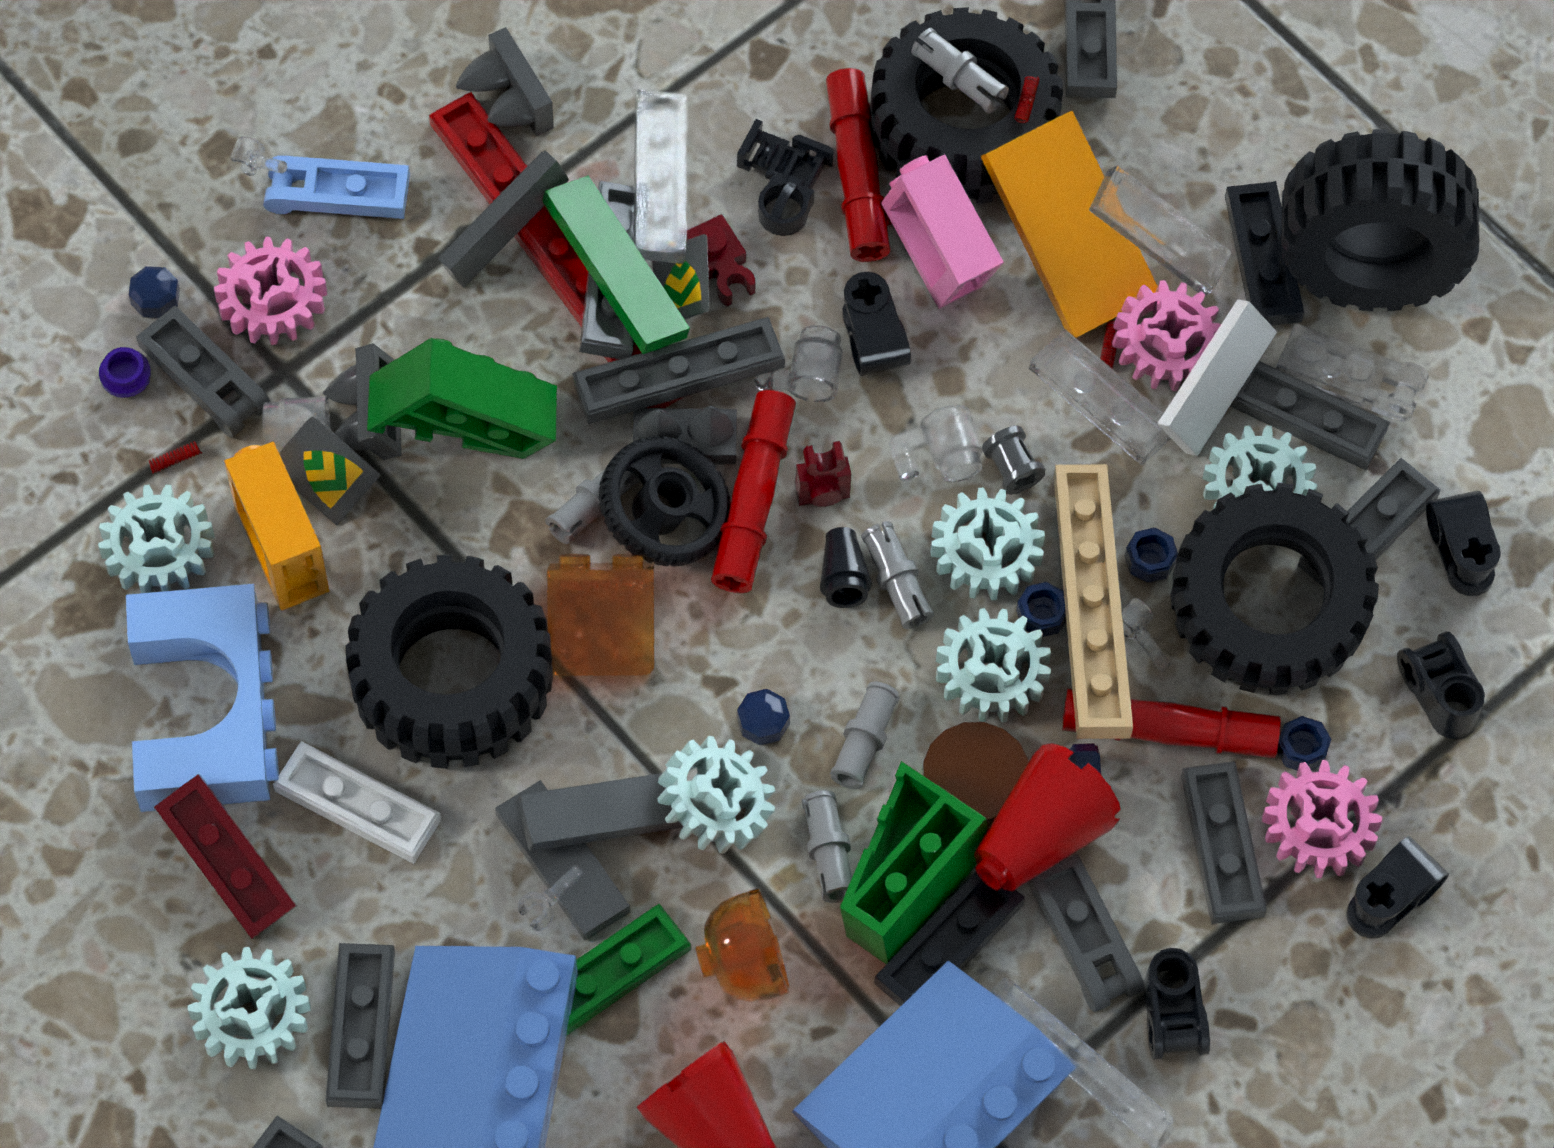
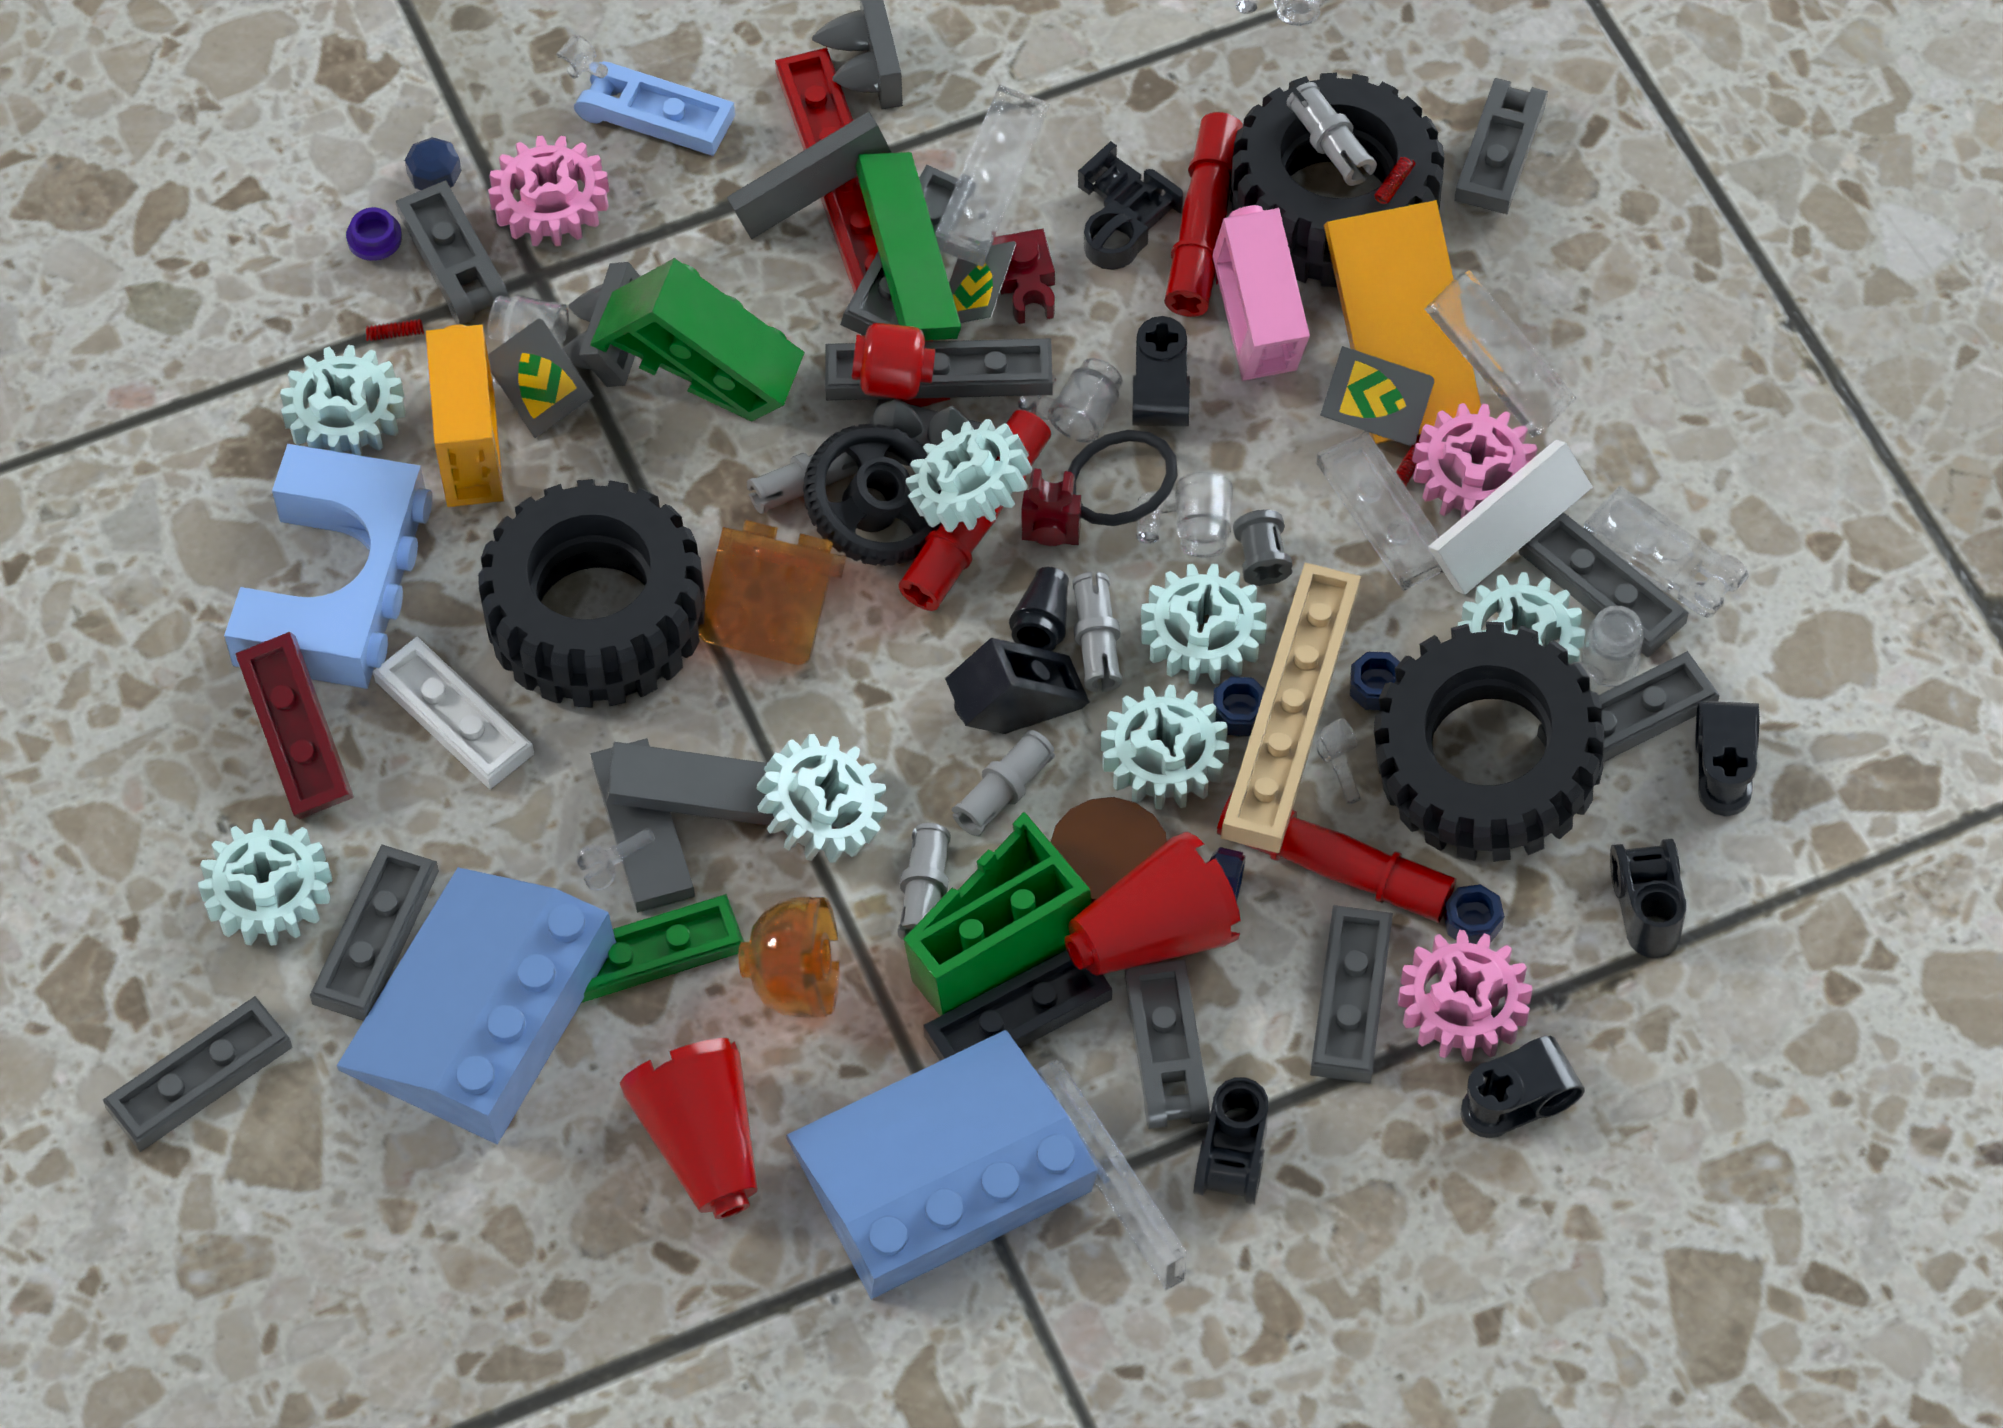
camera: 20 degrees right, 5 degrees down
(645, 378) = (892, 361): none -> red head
(747, 465) = (968, 475): none -> light aqua gear
(763, 717) = (904, 737): dark blue tile -> none
(845, 646) = (1014, 687): none -> black slope
(866, 386) = (1149, 506): none -> black piece
(1067, 296) = (1377, 396): none -> dark grey sticker
(1257, 233) = (1611, 407): black plate -> none
(1340, 471) = (1613, 647): none -> clear piece
(1380, 220) = (1746, 345): black tyre -> none

